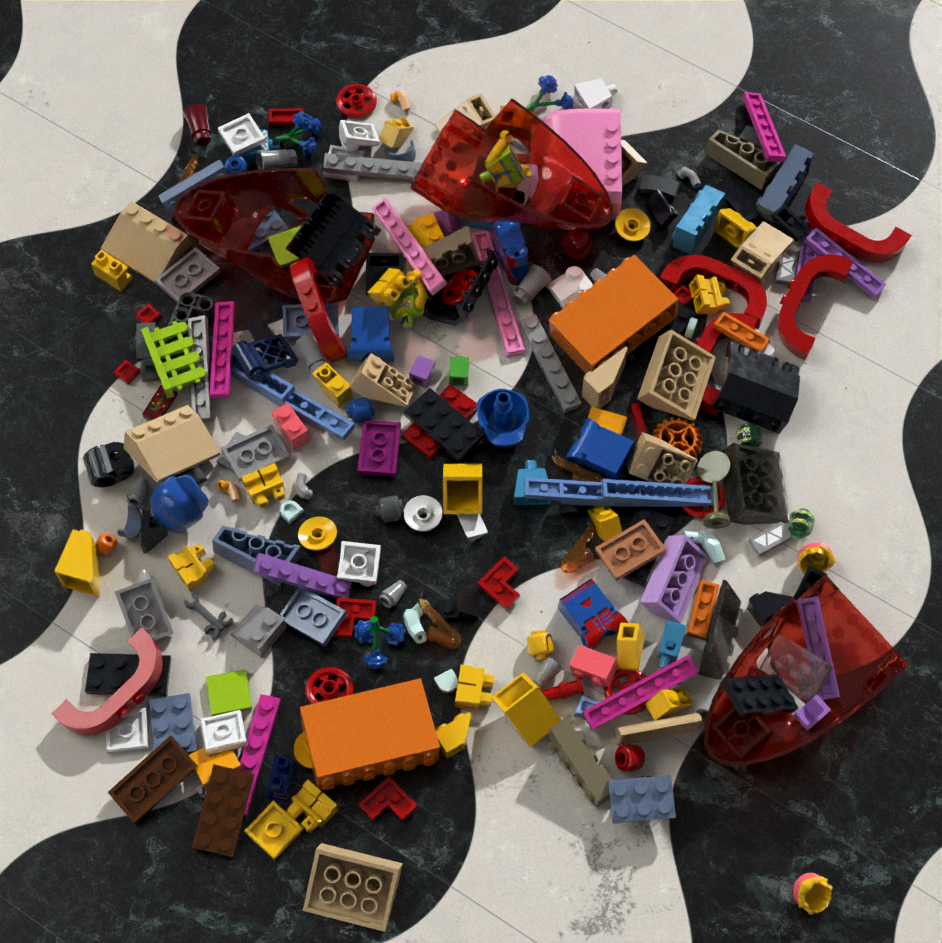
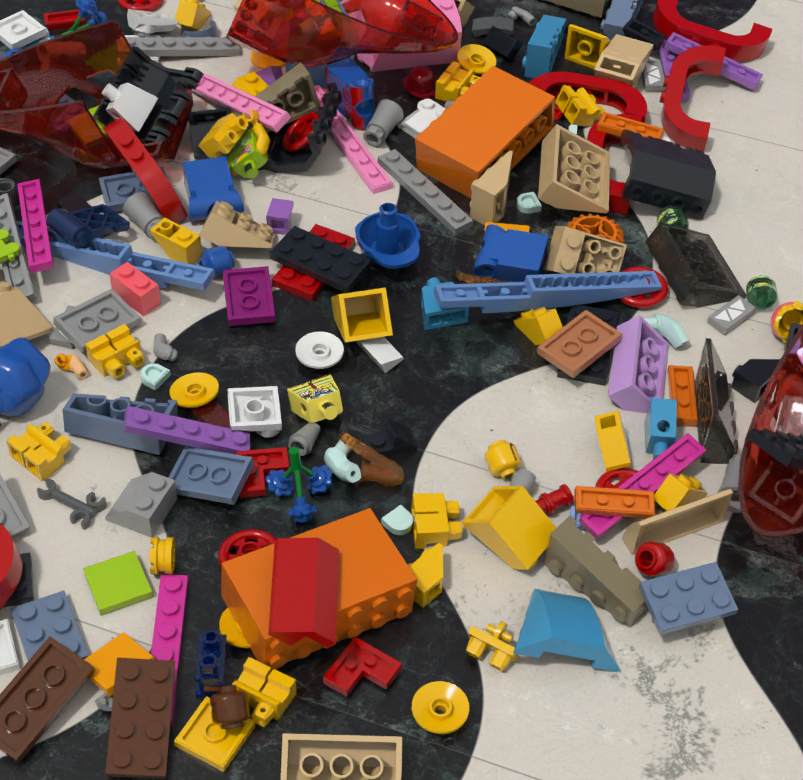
camera: 15 degrees left, 15 degrees down
(223, 732) = (120, 627): white tile -> none
(264, 679) = (162, 556): none -> yellow wheel
(285, 817) = (230, 707): none -> reddish brown head
(317, 243) = (130, 104): none -> white torso
(353, 745) = (304, 591): none -> red slope
(390, 508) = (278, 351): dark grey head -> none
(409, 562) = (316, 399): none -> light yellow torso
(433, 836) = (444, 697): none -> yellow dish
(459, 371) = (323, 209): bright green brick -> none
(480, 798) = (502, 651): none -> yellow hips
(496, 585) = (429, 406): red plate -> none
(543, 801) = (564, 627): none -> dark azure wedge
(576, 558) = (518, 365): clear orange piece -> none
(590, 614) = (553, 417): piece -> none
(593, 666) = (575, 468): coral brick -> none
(607, 249) = (454, 82): none -> yellow hips
(611, 705) = (614, 502): none -> orange tile
(632, 390) = (528, 203): none -> light aqua tile
(637, 420) = (541, 223): red tile -> none
(712, 469) = (645, 254): piece -> none

